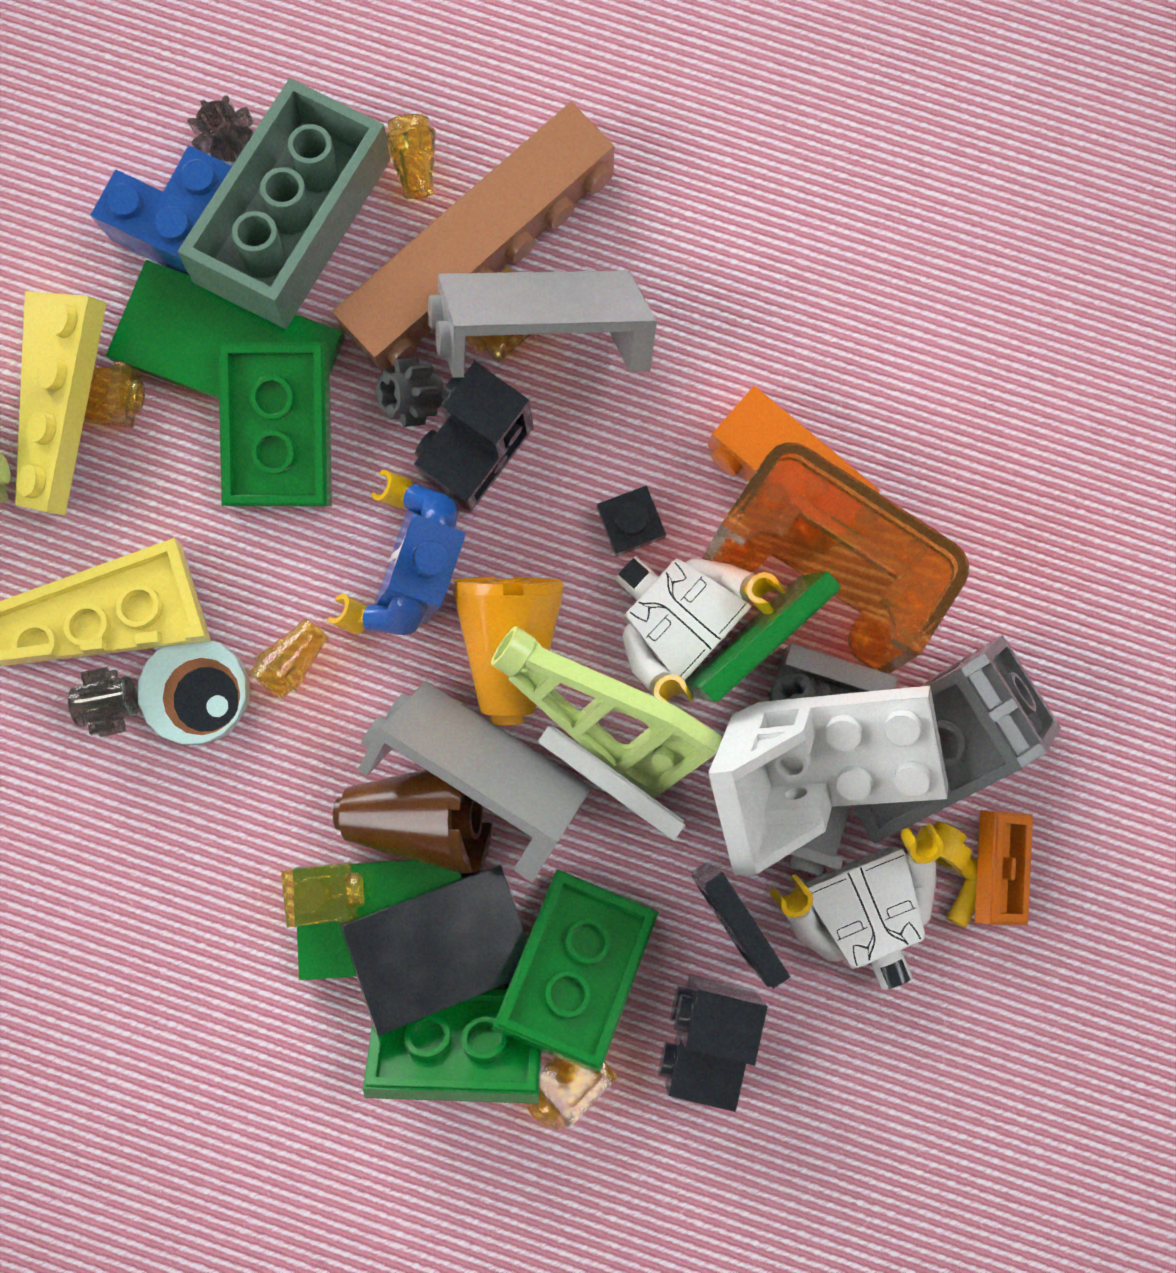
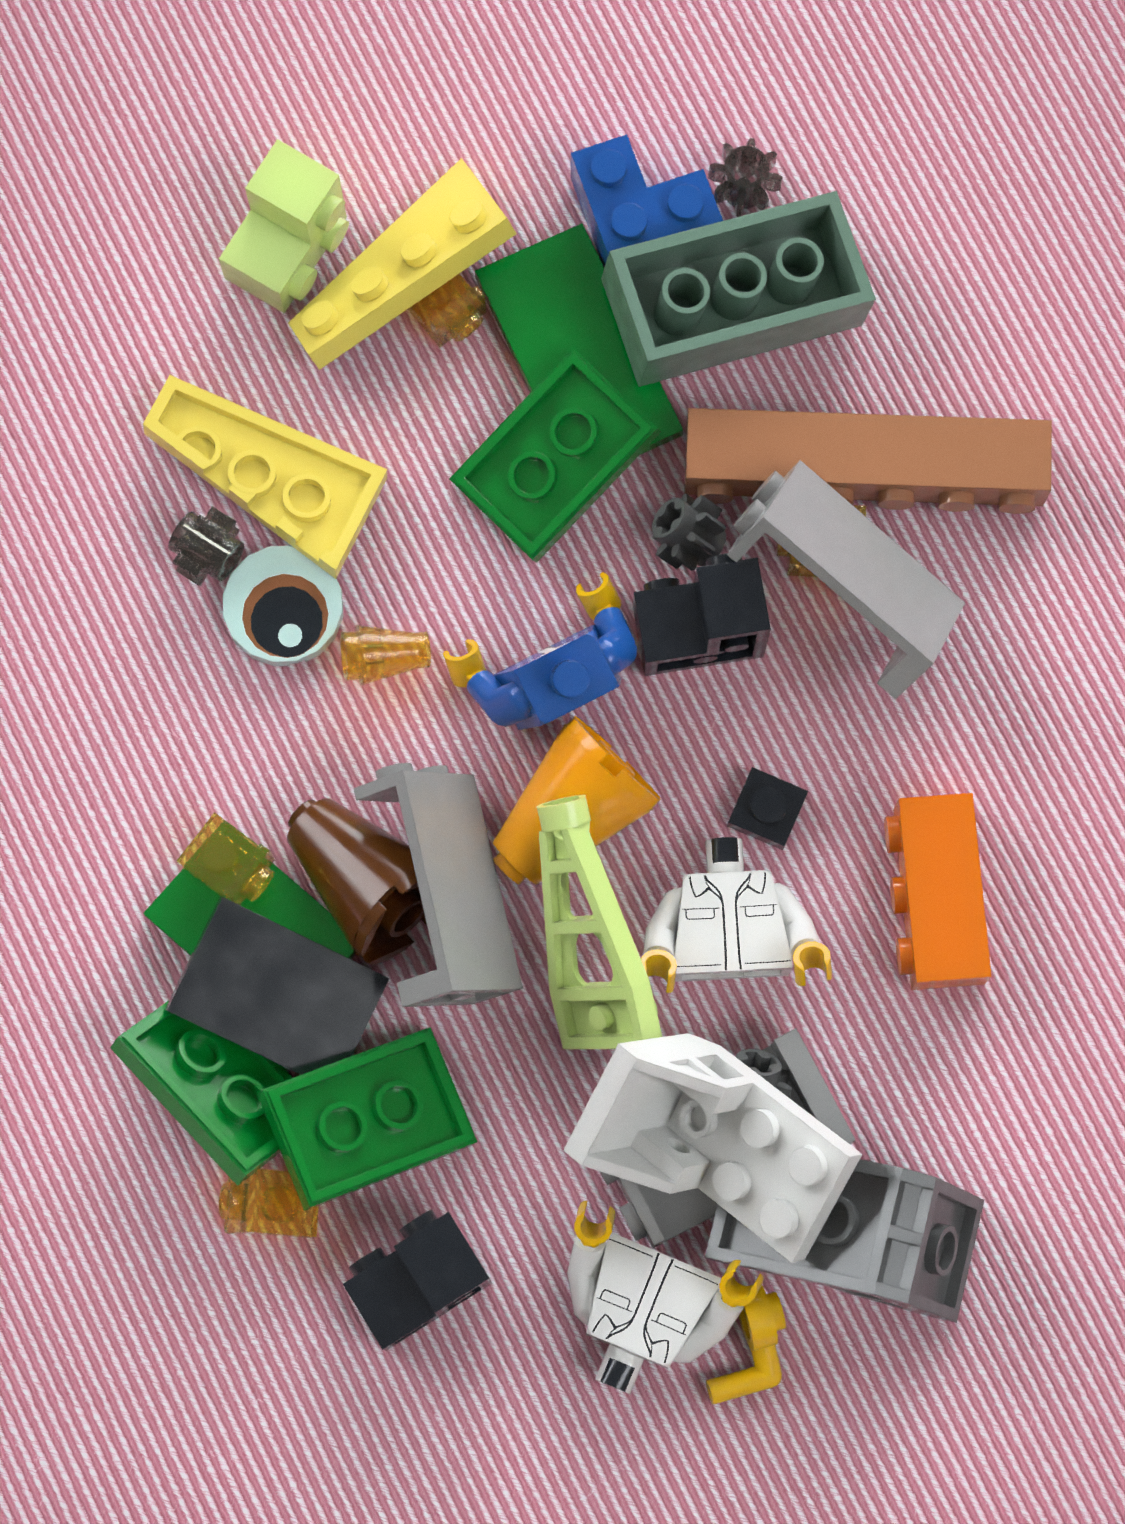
camera: 45 degrees right, 5 degrees down
(412, 152) = (884, 337): clear yellow cone -> none
(612, 782) = (542, 999): white tile -> none
(739, 925) = (530, 1195): black tile -> none
(761, 636) = (776, 998): green tile -> none
(882, 556) = (916, 983): clear orange windscreen -> none
(1003, 868) = (787, 1377): orange tile -> none

